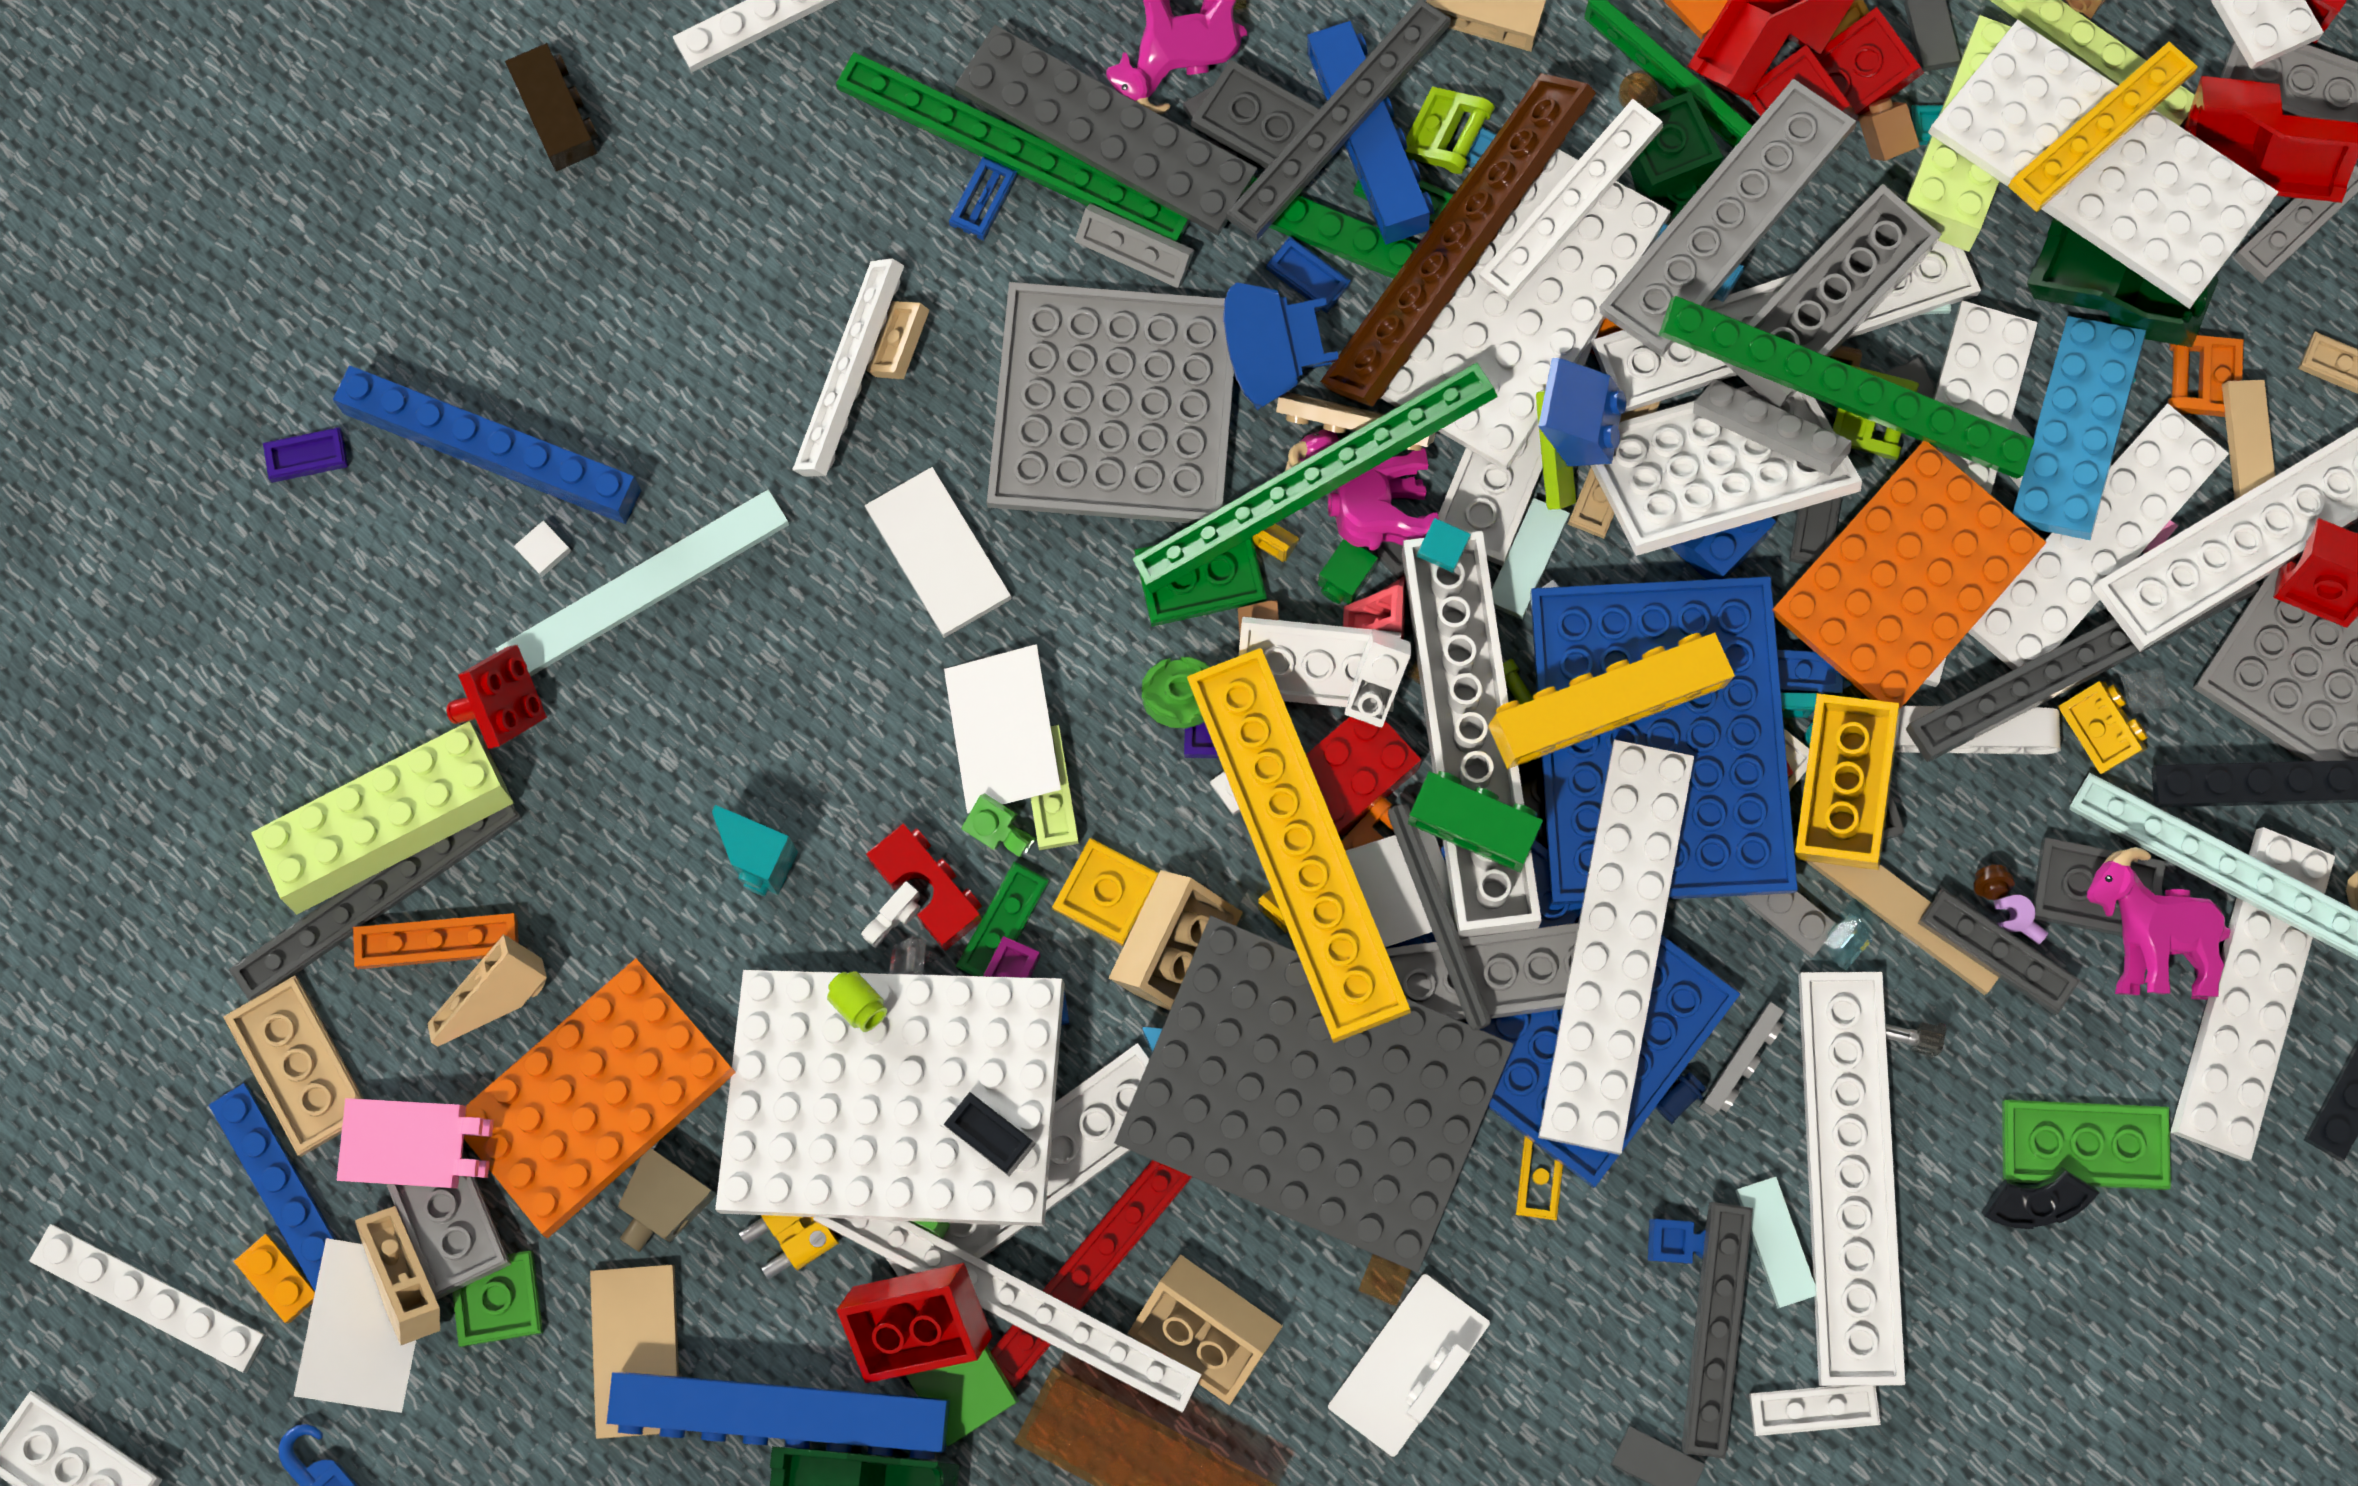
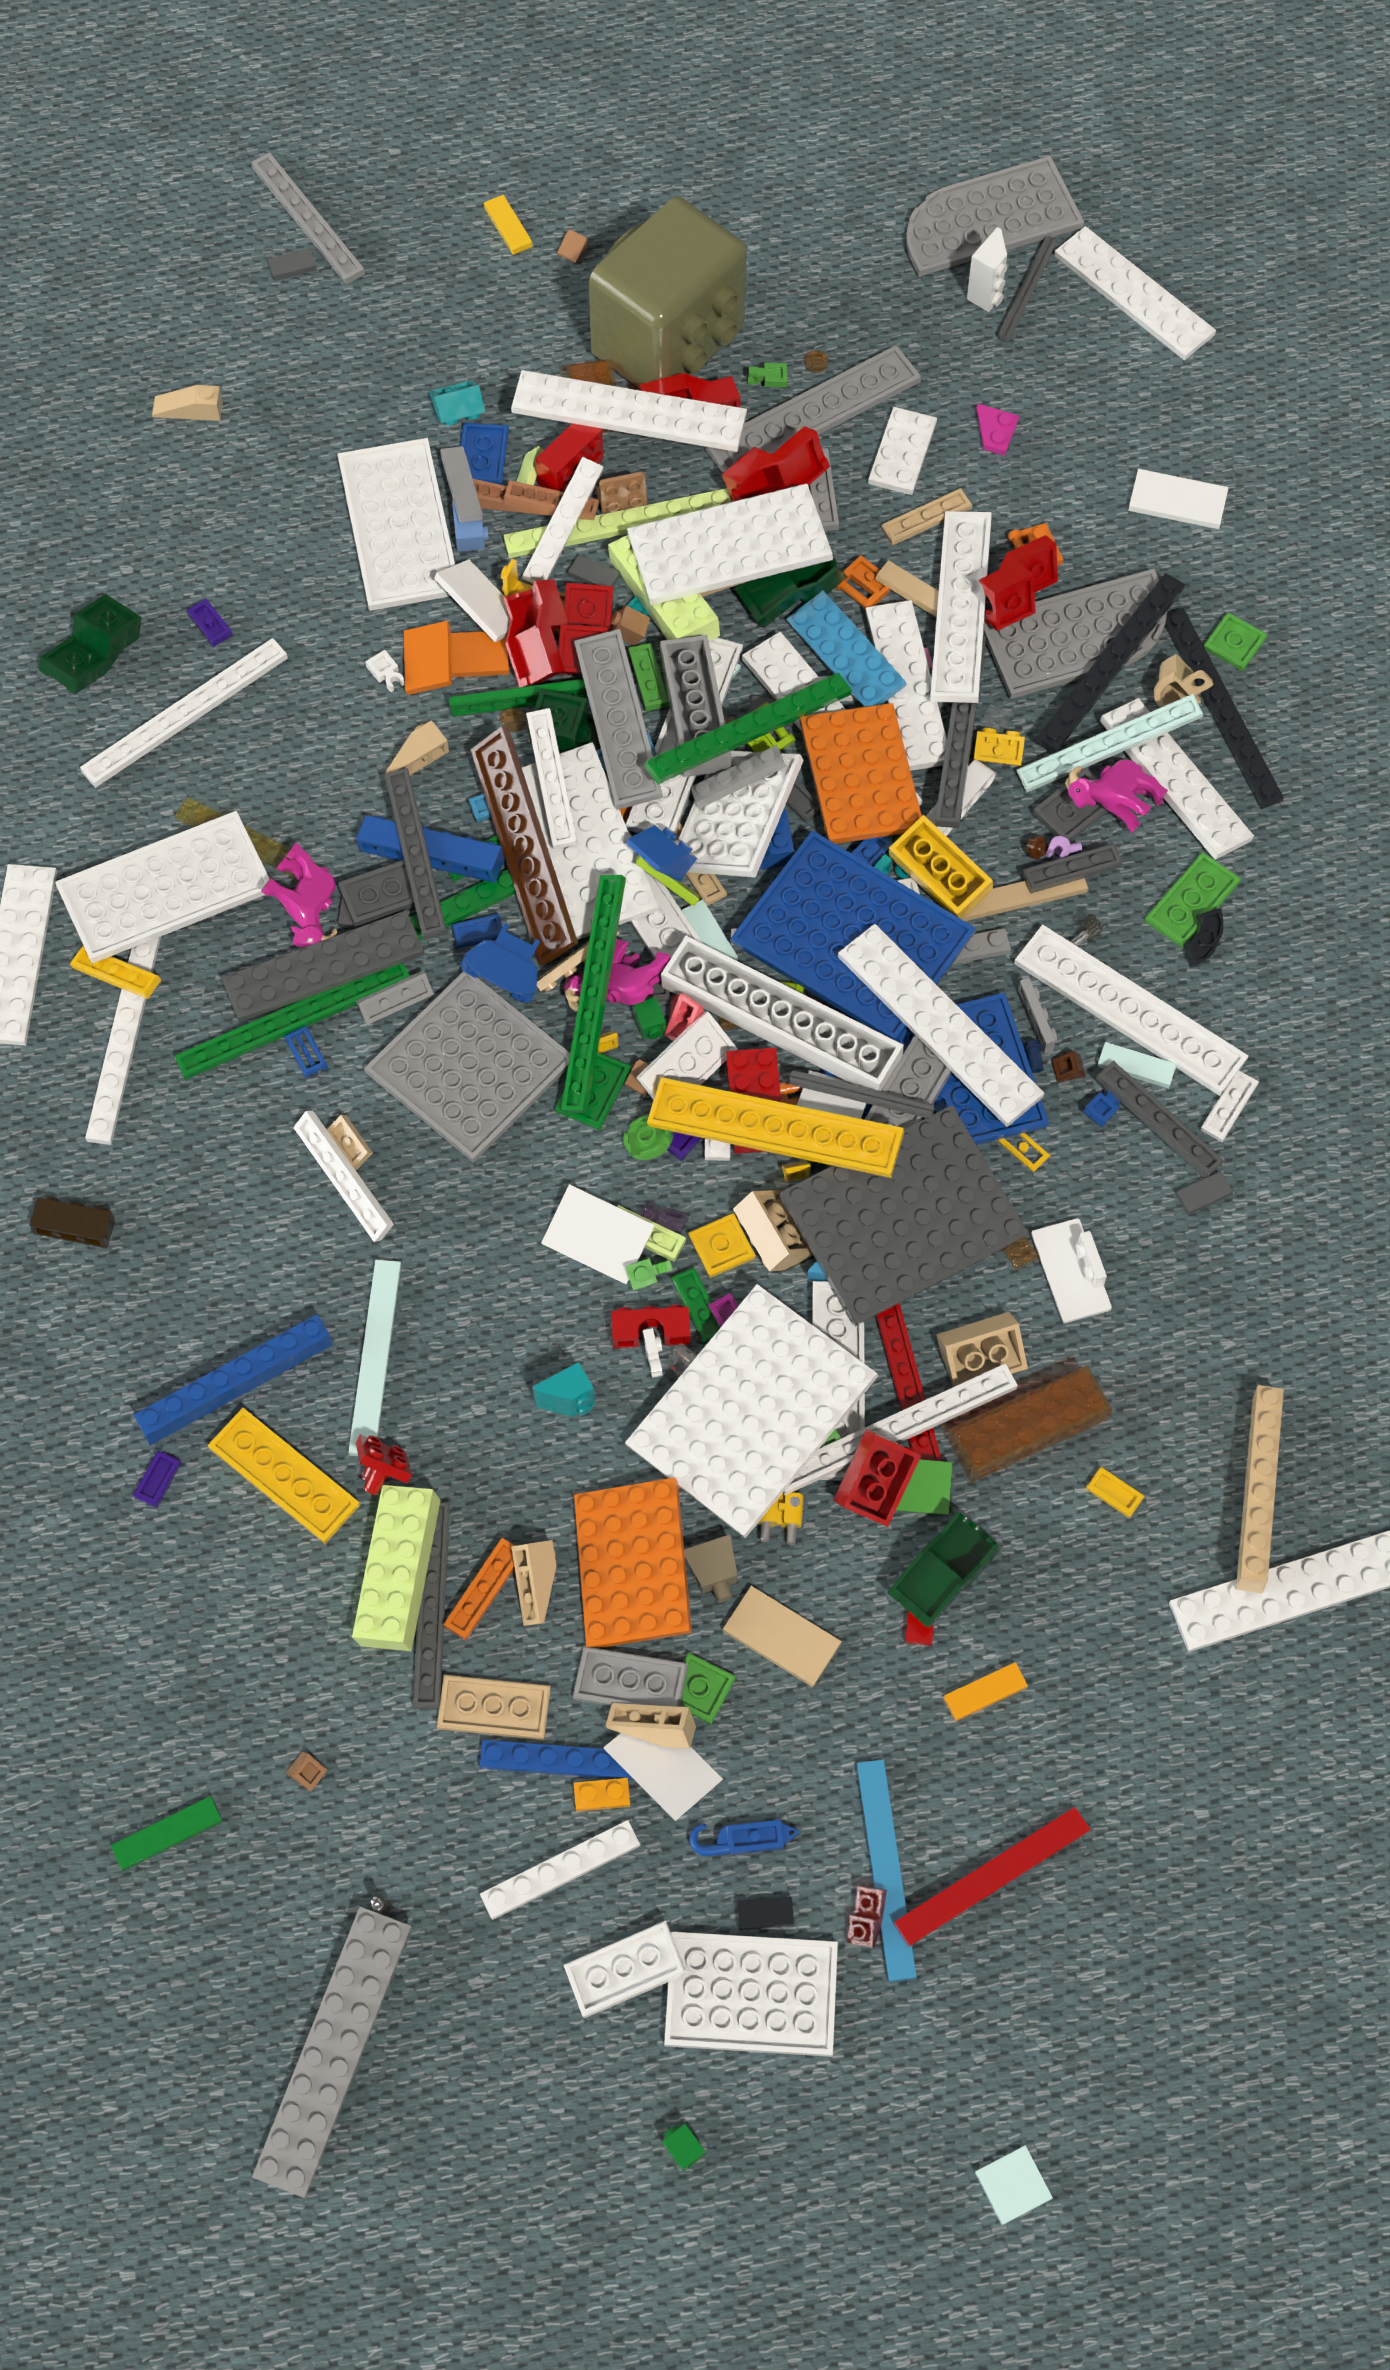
camera: 55 degrees left, 10 degrees down
(66, 905) = (306, 1771): none -> medium nougat slope
(408, 1143) = (585, 1670): bright pink tile -> none
(411, 596) = (284, 1475): none -> yellow plate
(542, 548) = (312, 1393): white tile -> none
(778, 1412) = (869, 1581): blue brick -> none
(856, 1001) = (691, 1388): lime brick -> none
(938, 552) = (477, 1202): white tile -> none
(989, 1134) = (812, 1367): black tile -> none
(1089, 799) = (667, 1217): none -> clear purple plate
(1378, 678) = (720, 1034): white slope -> none
(1437, 124) = (451, 816): lime plate -> none
(1443, 545) = (679, 956): teal tile -> none
(1475, 820) = (832, 1036): green brick -> none
(1611, 699) = (819, 937): yellow brick -> none
(1703, 1154) = (1068, 1067): none -> reddish brown slope
(1836, 206) = (648, 677): none -> bright green plate
(1847, 941) = (1015, 929): clear light blue plate -> none
(2102, 126) = (714, 529): yellow tile -> none

